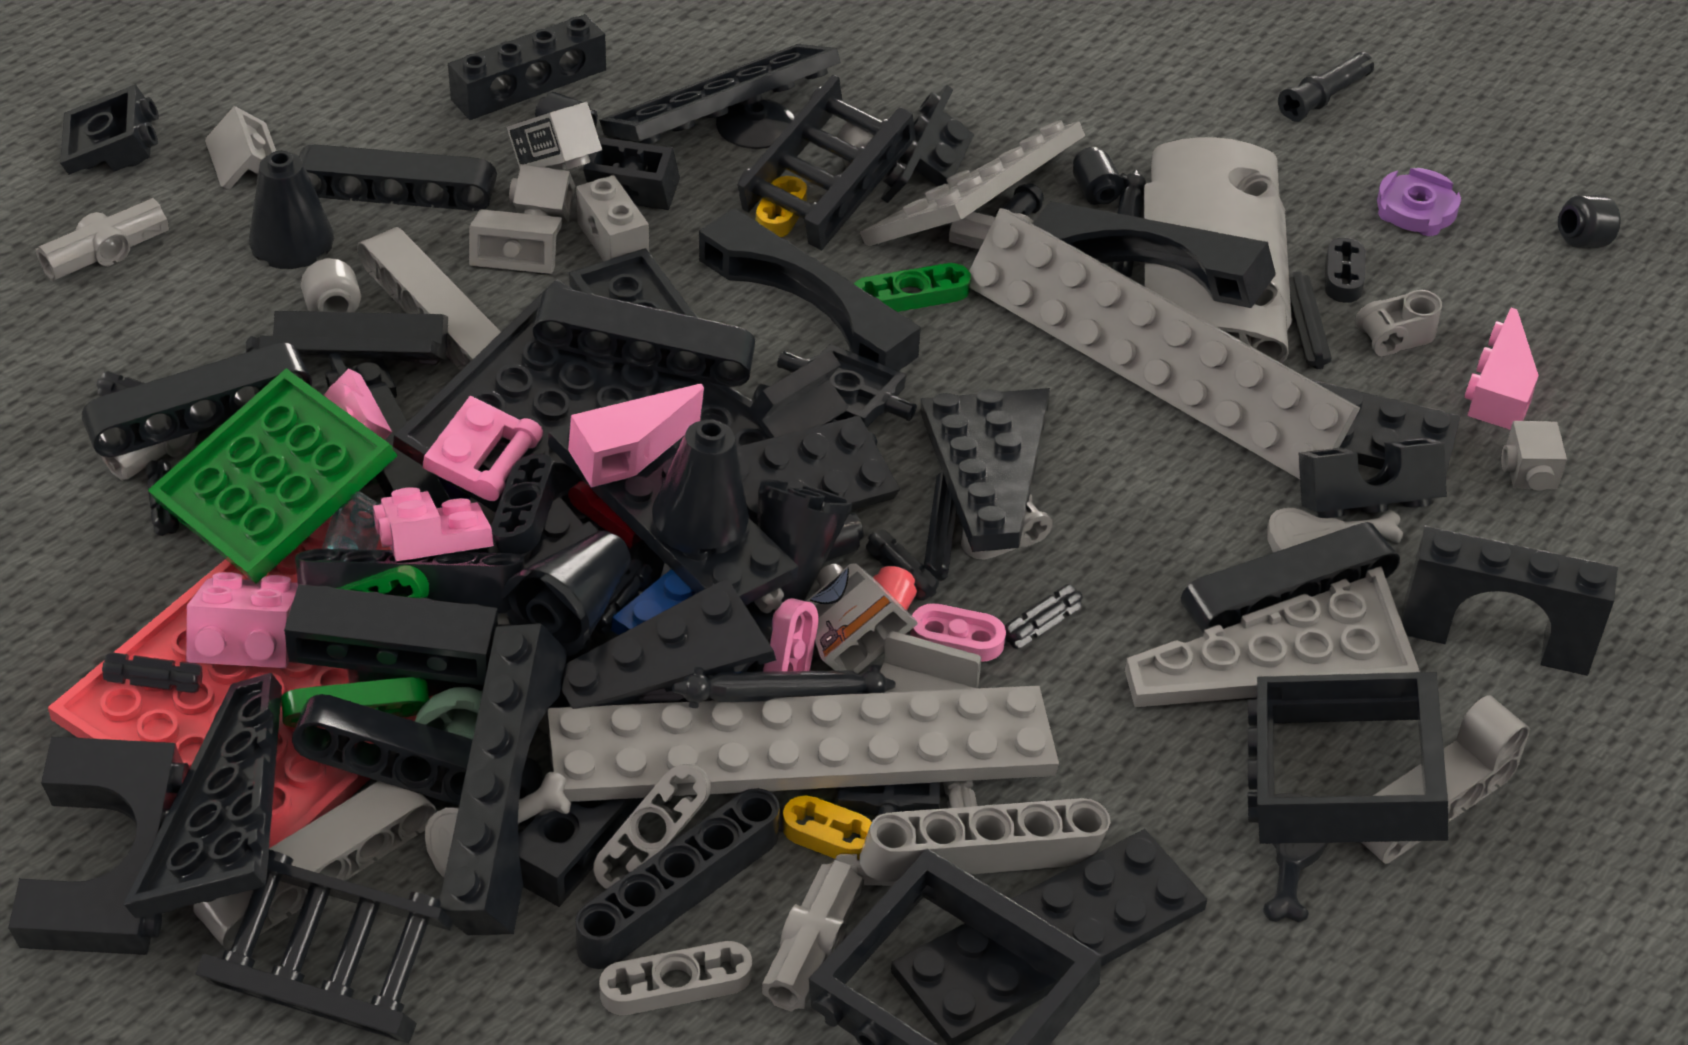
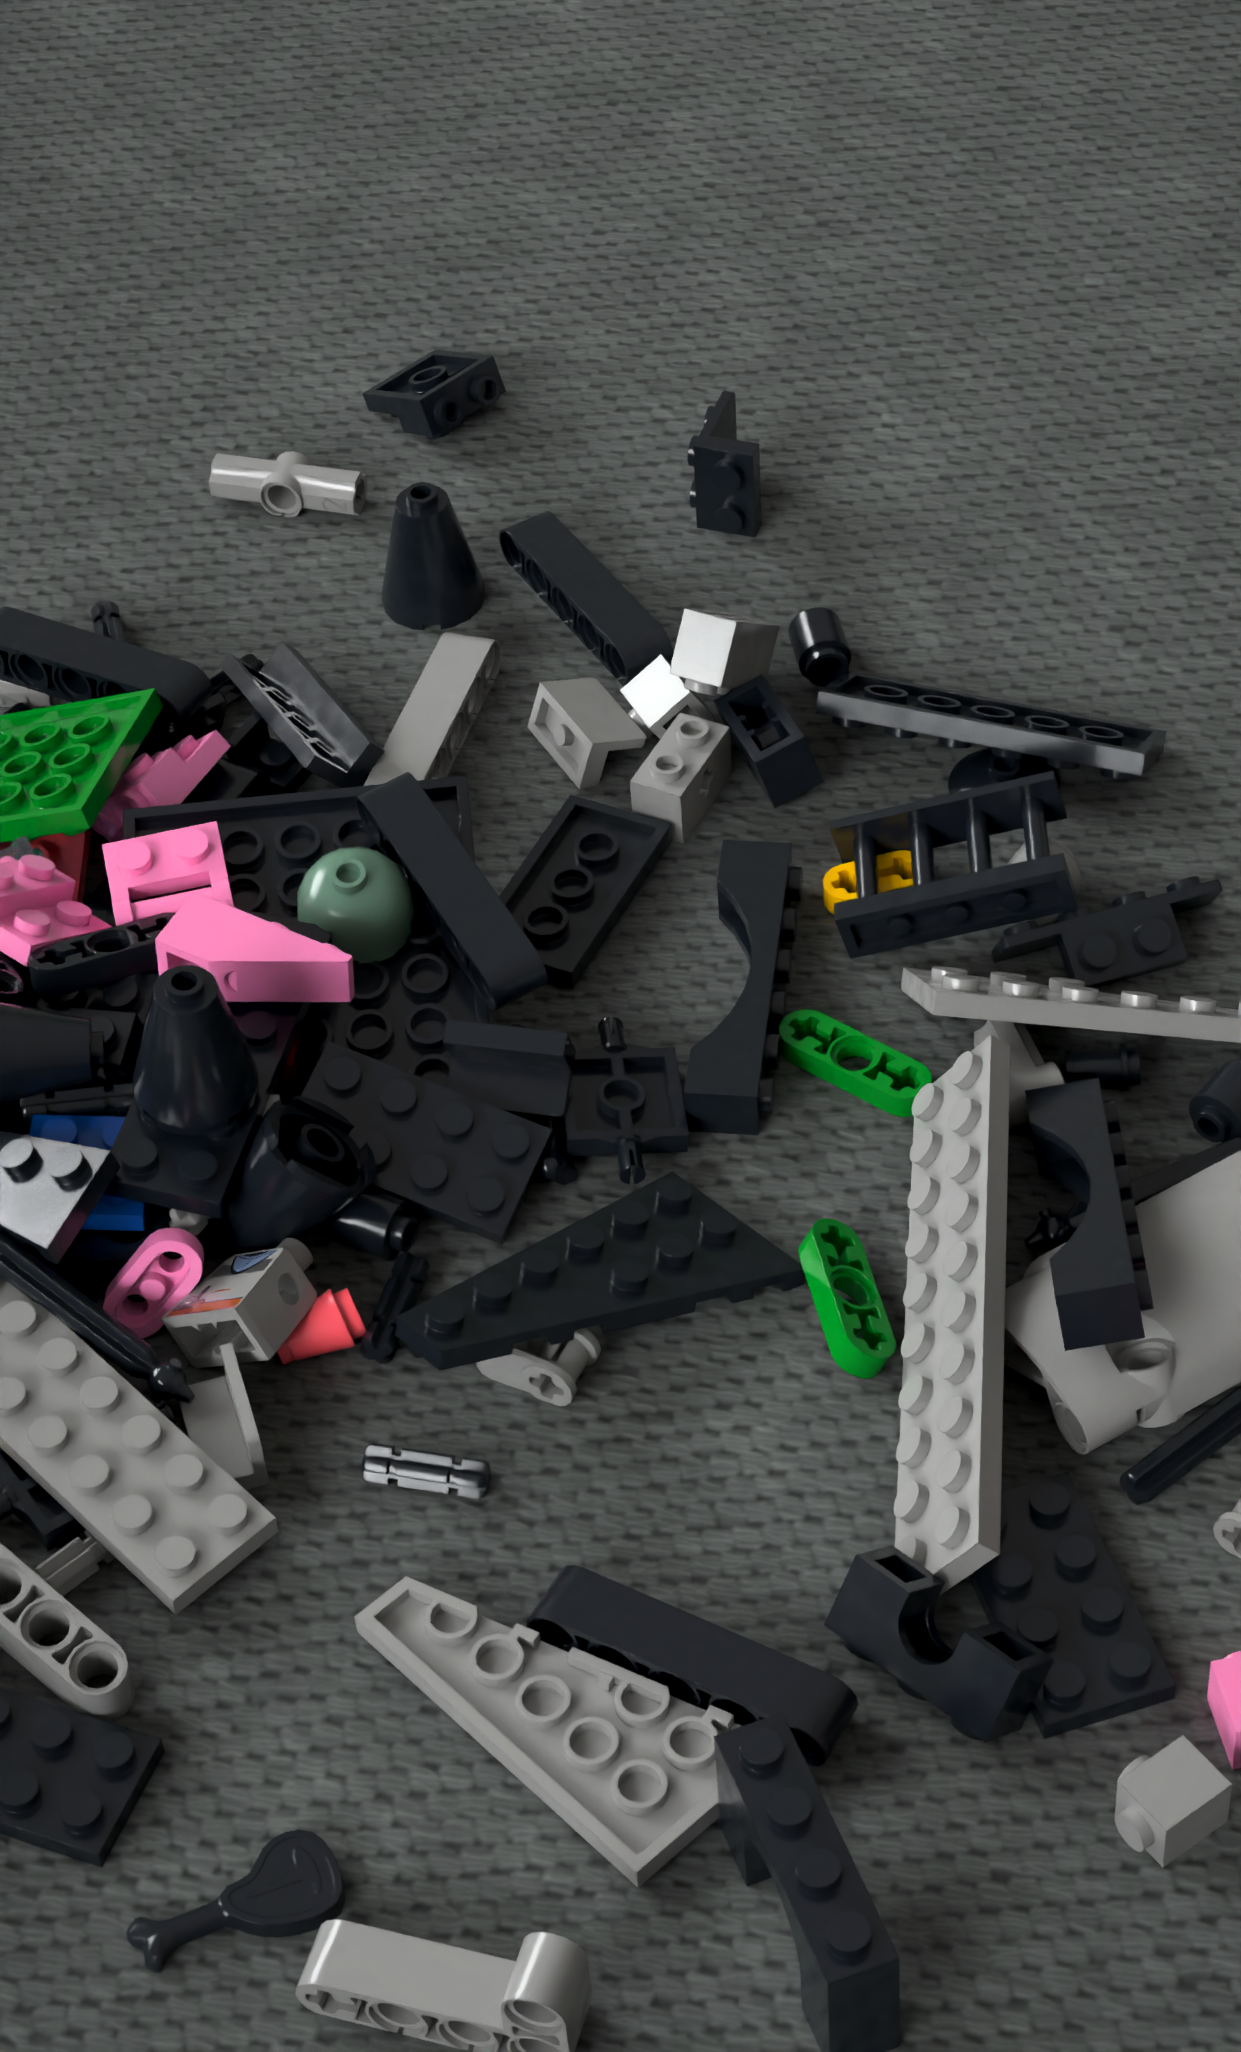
camera: 60 degrees right, 0 degrees up
(238, 145) = (523, 481): light grey panel -> none
(330, 287) = (365, 659): light grey head -> none
(380, 64) = (725, 474): none -> black bracket
(527, 66) = (862, 571): black brick -> none
(601, 375) = (360, 901): none -> sand green cylinder
(960, 629) = (327, 1414): bright pink plate -> none
(1088, 384) = (856, 1335): none -> green beam
(1294, 526) = (794, 1625): light grey piece -> none
(1347, 817) = (415, 1943): black window -> none

